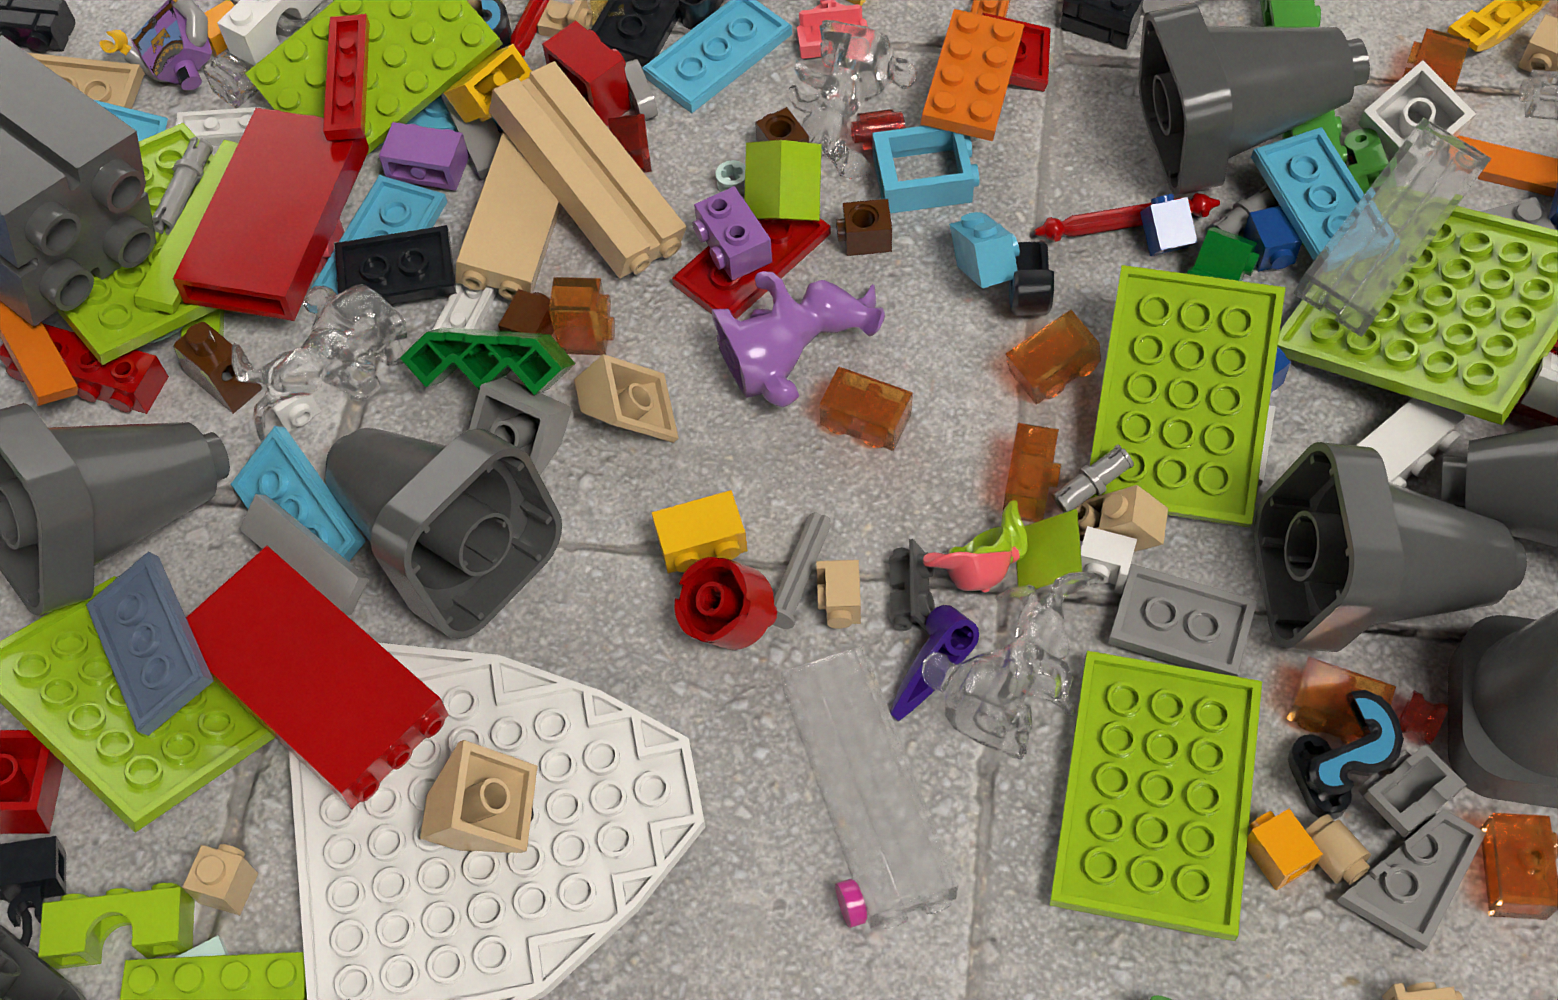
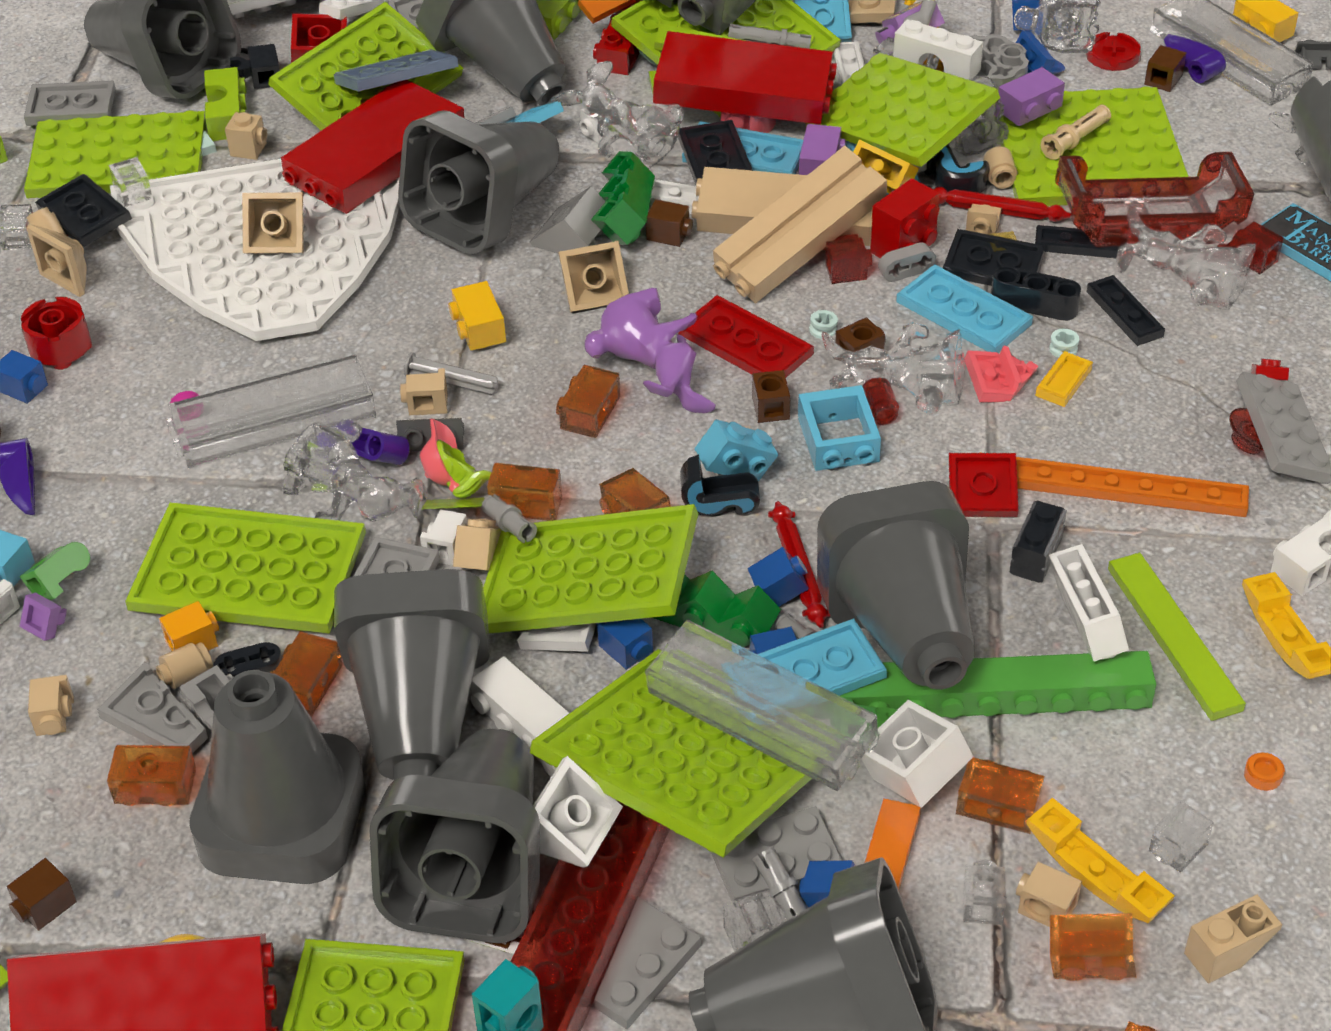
camera: 85 degrees right, 15 degrees down
(204, 358) = (629, 75): reddish brown torso -> none
(346, 77) = (858, 82): red plate -> none
(581, 315) = (664, 238): clear orange brick -> none
(725, 603) = (412, 324): red brick -> none
(732, 233) = (750, 313): medium lavender brick -> none
(783, 180) = (797, 332): lime slope -> none
(972, 75) = (931, 440): orange plate -> none
(1364, 756) = (240, 655): black animal -> none

